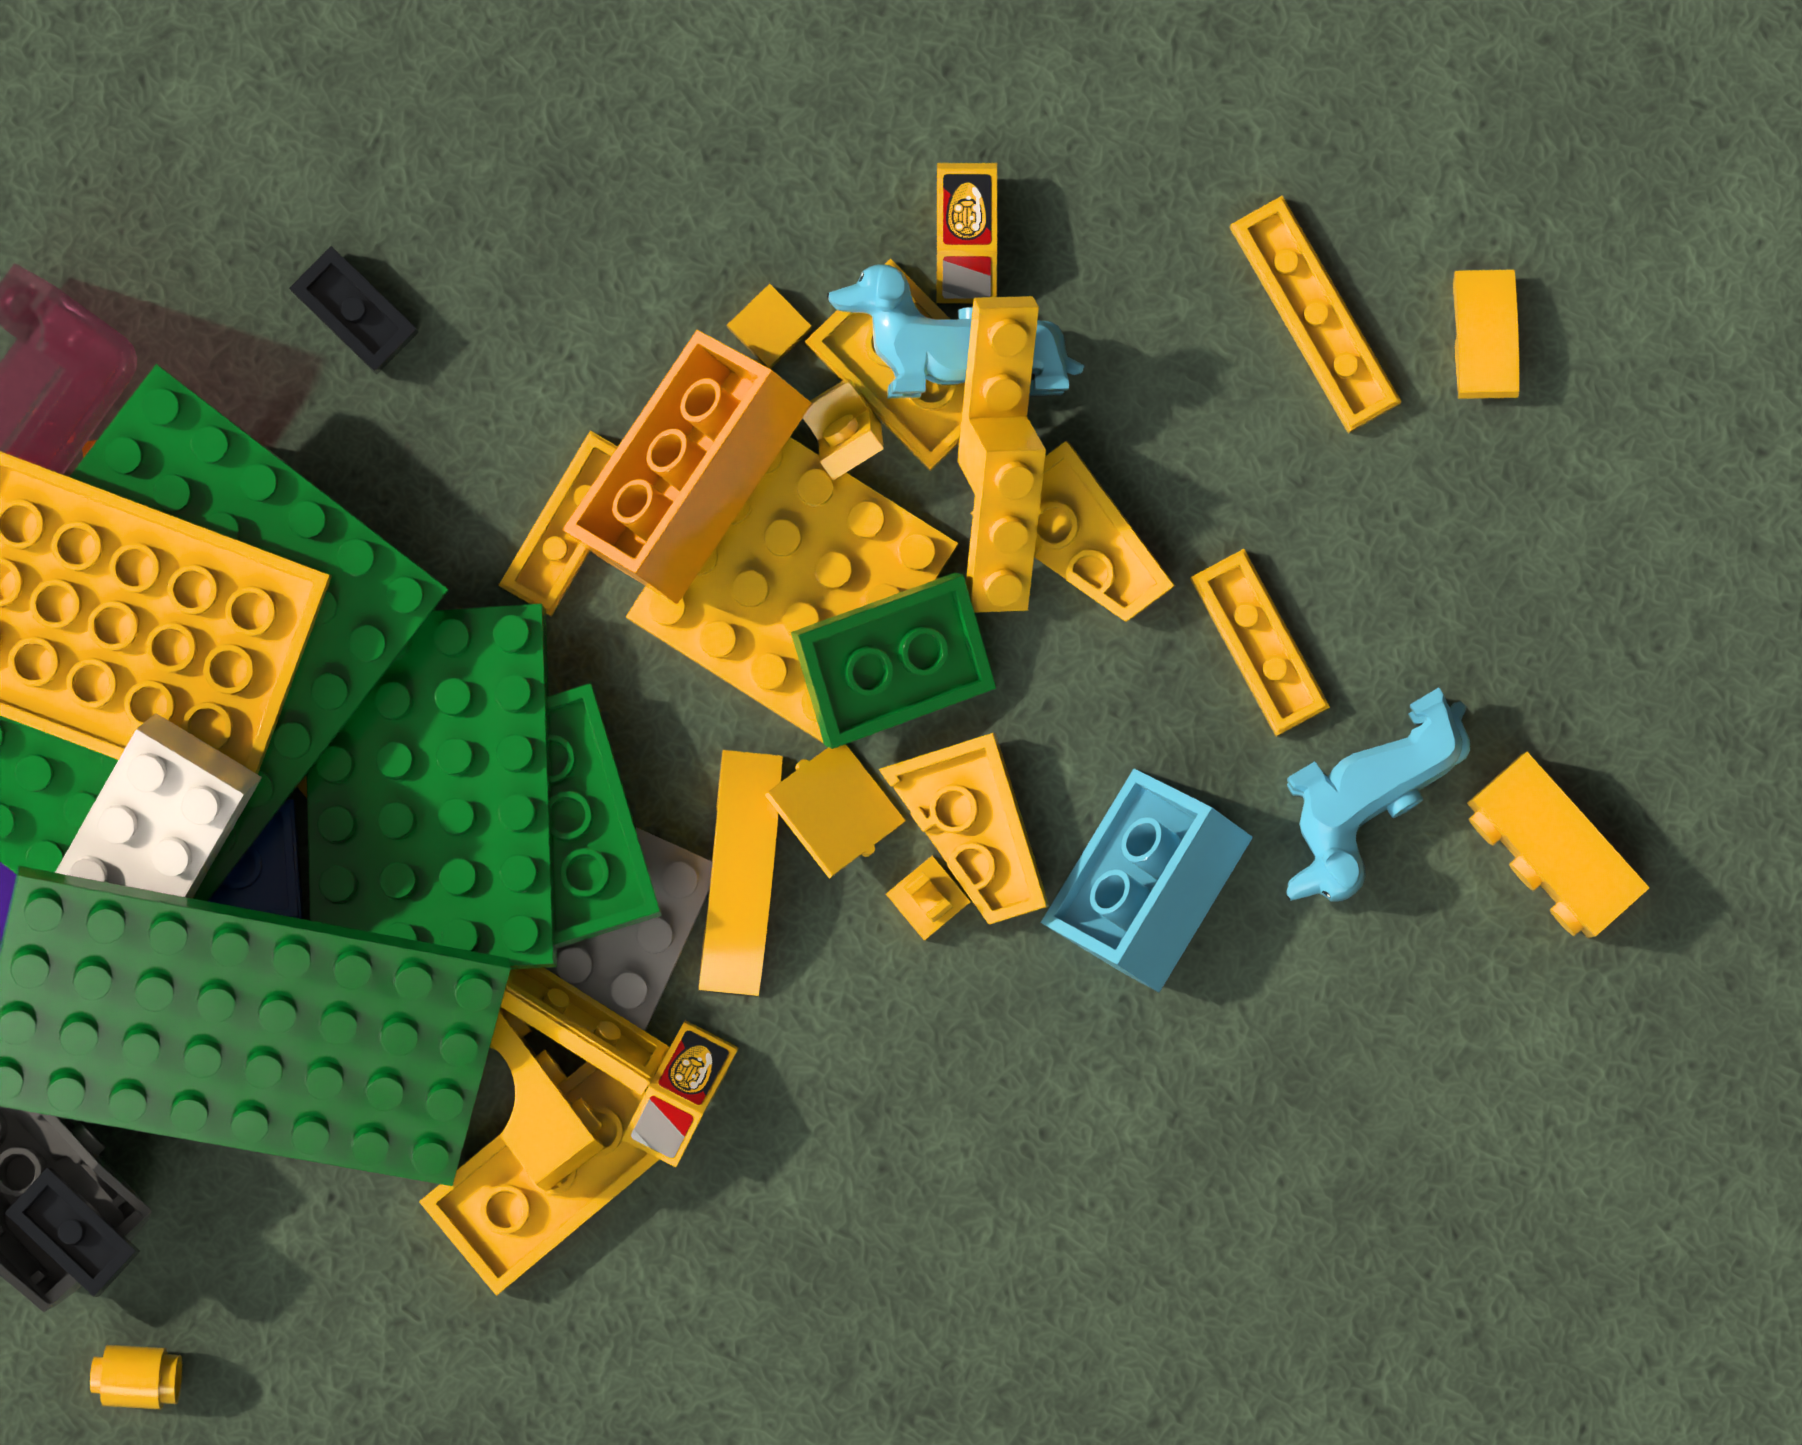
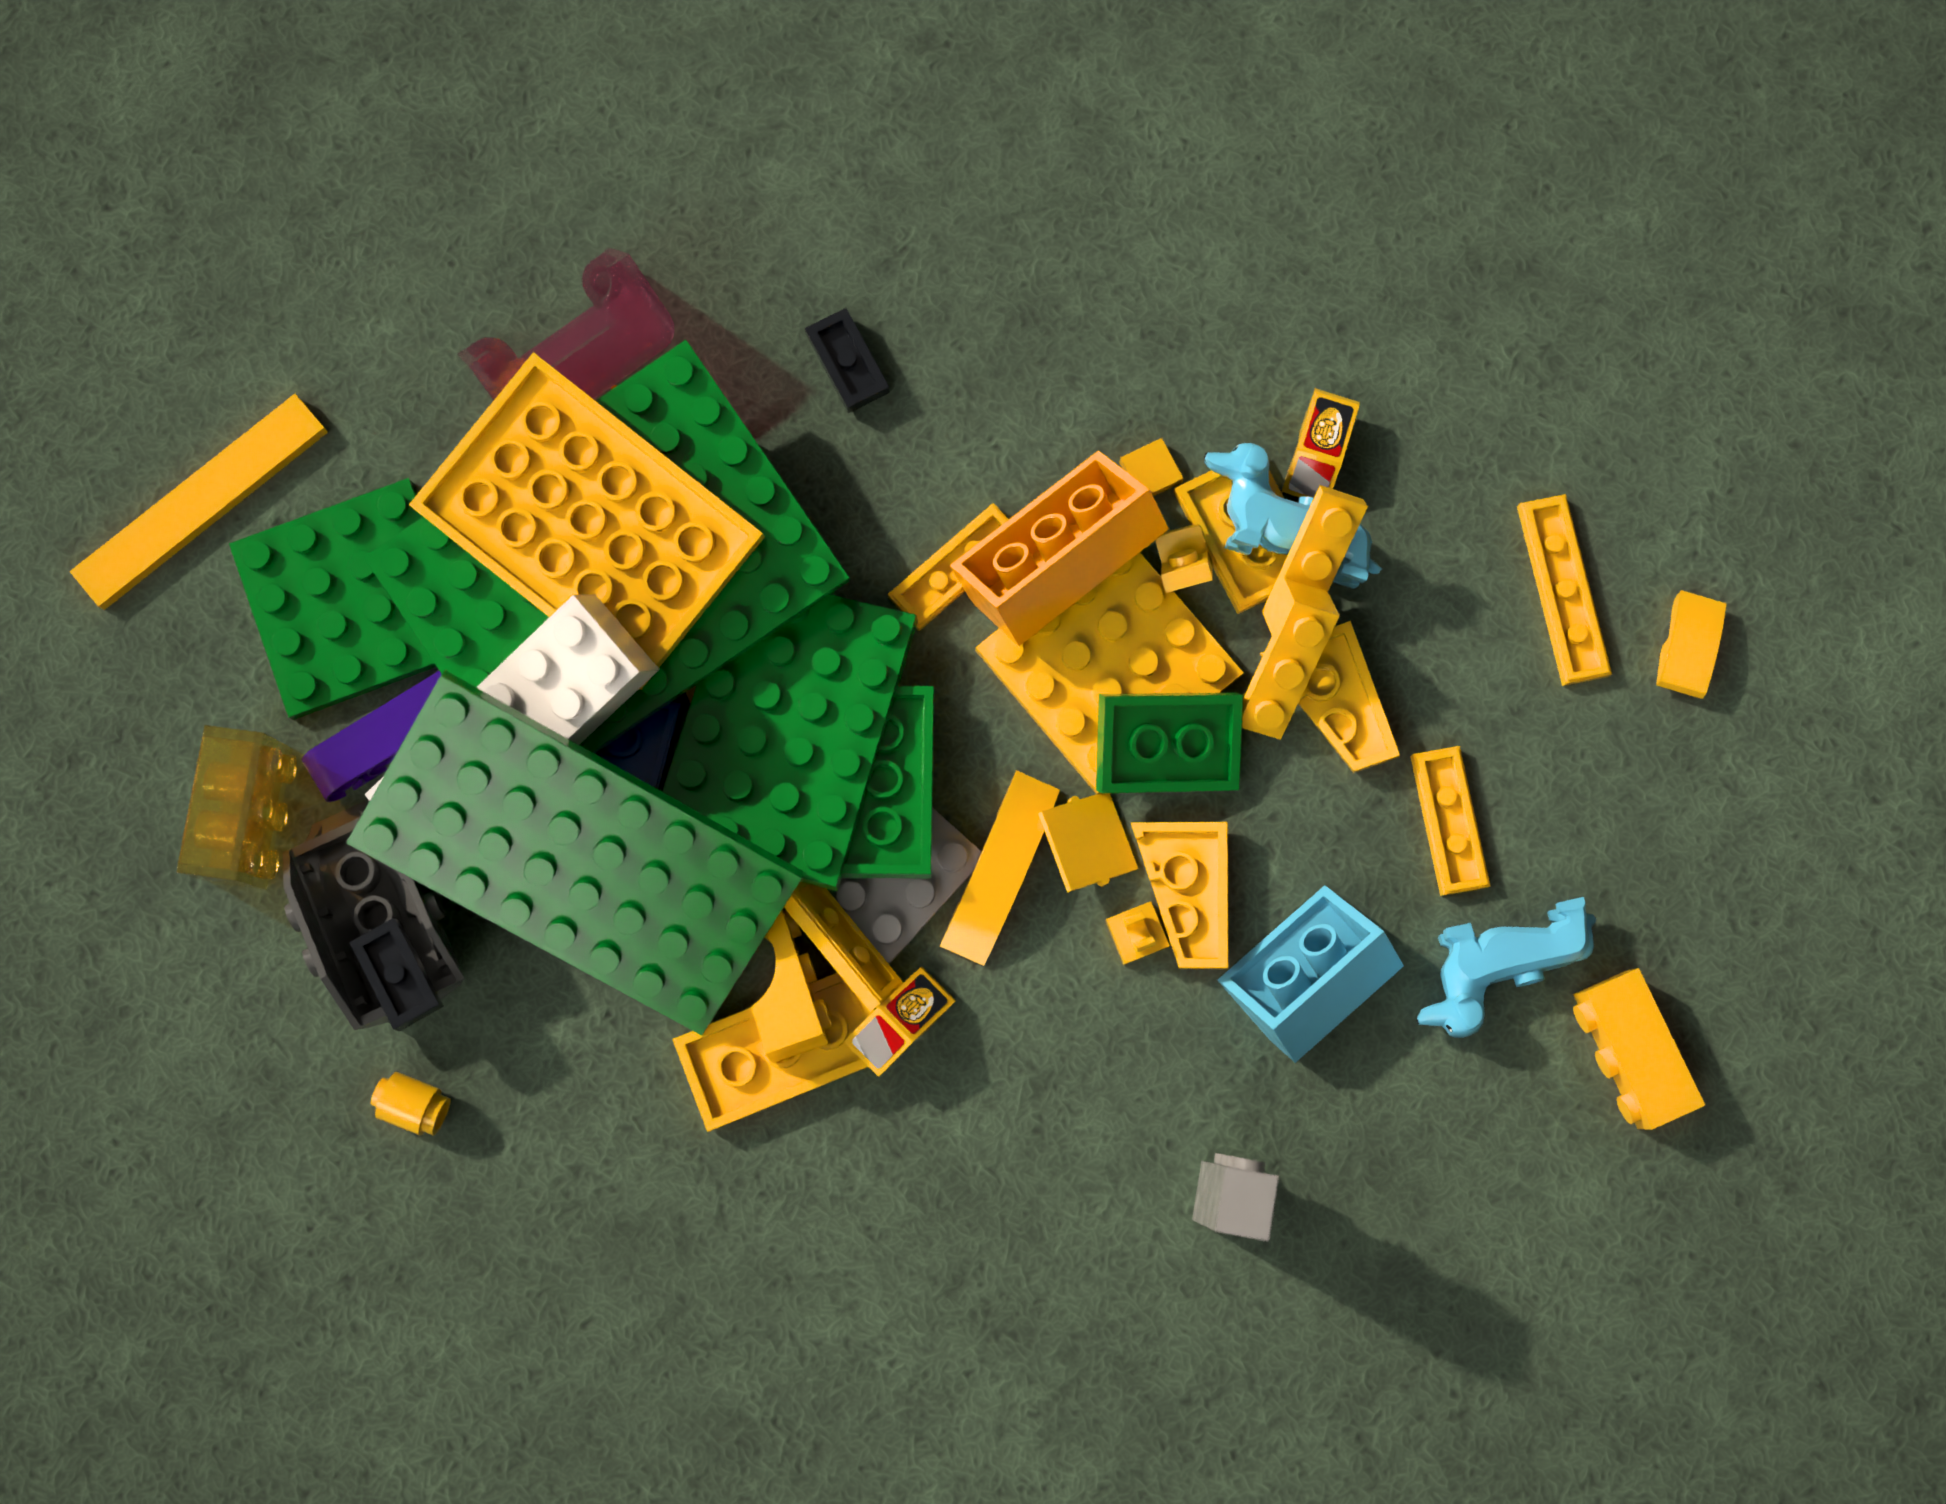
camera: 15 degrees right, 5 degrees down
(1127, 1172) = (1235, 1197): none -> light grey brick

